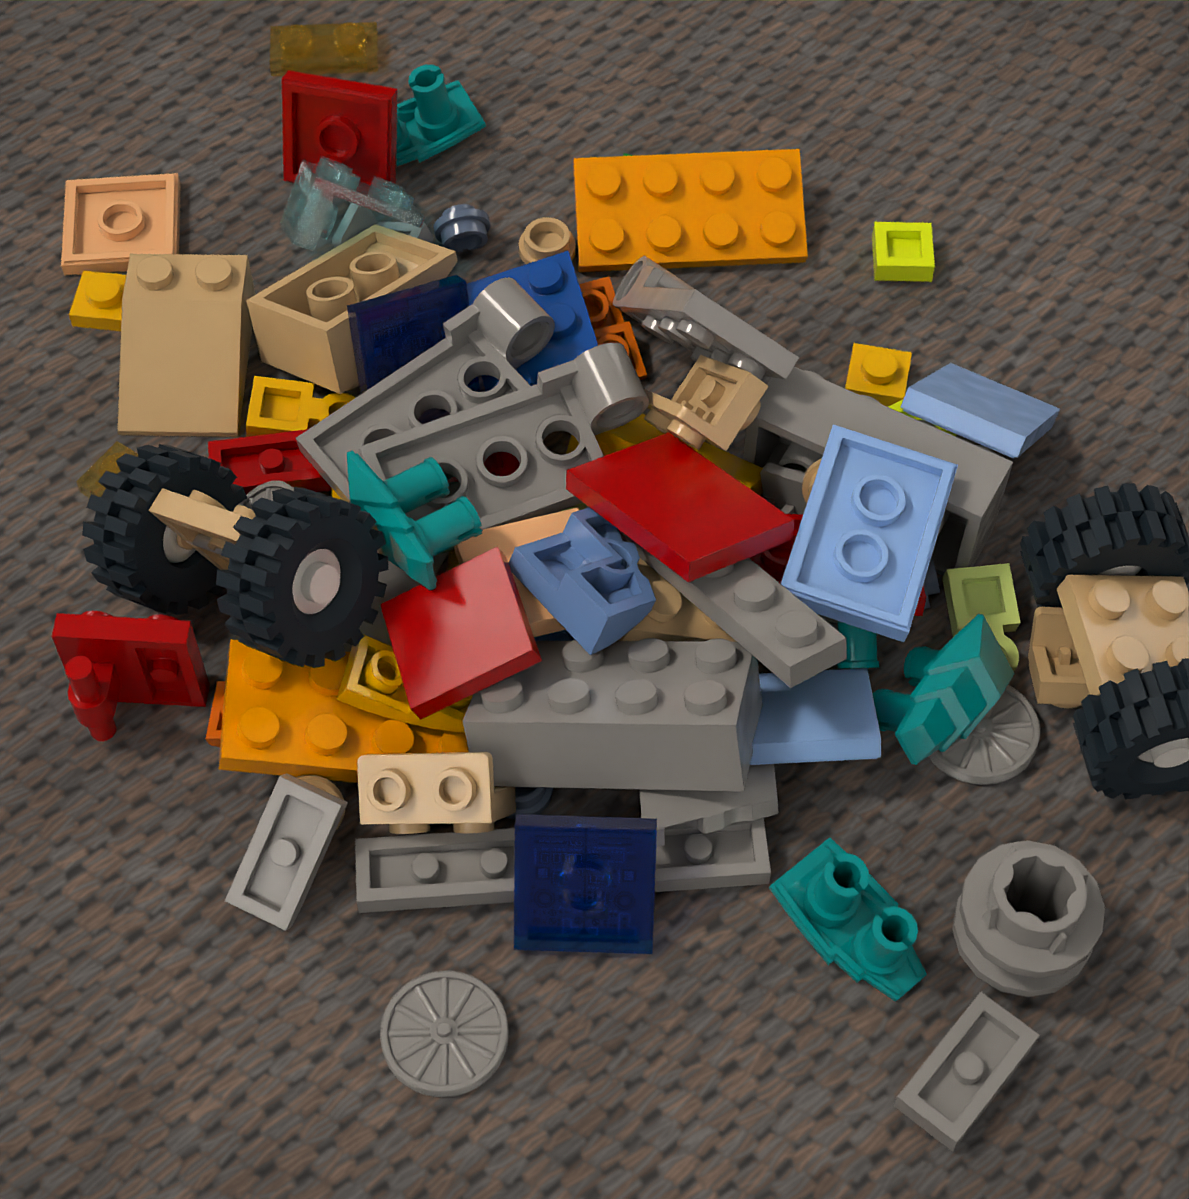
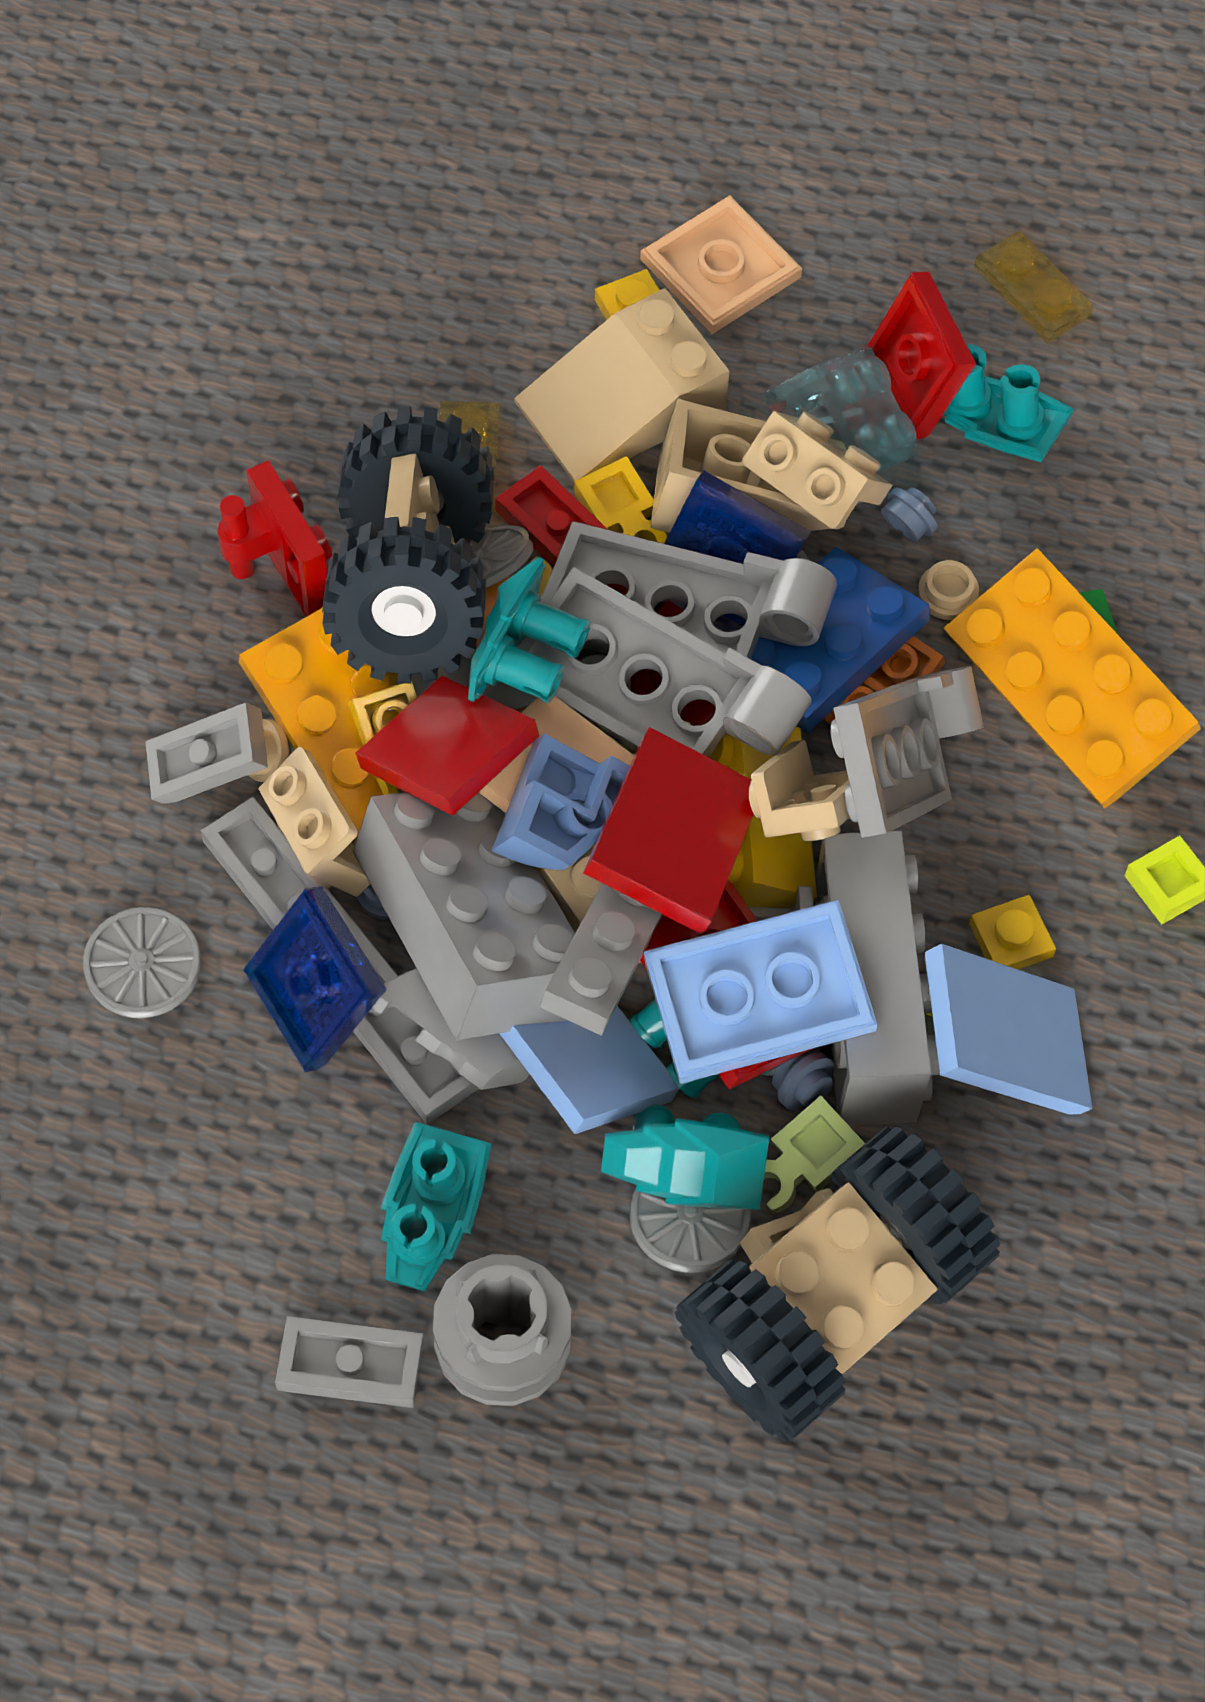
camera: 55 degrees right, 5 degrees up
(402, 242) = (812, 469): none -> tan bracket

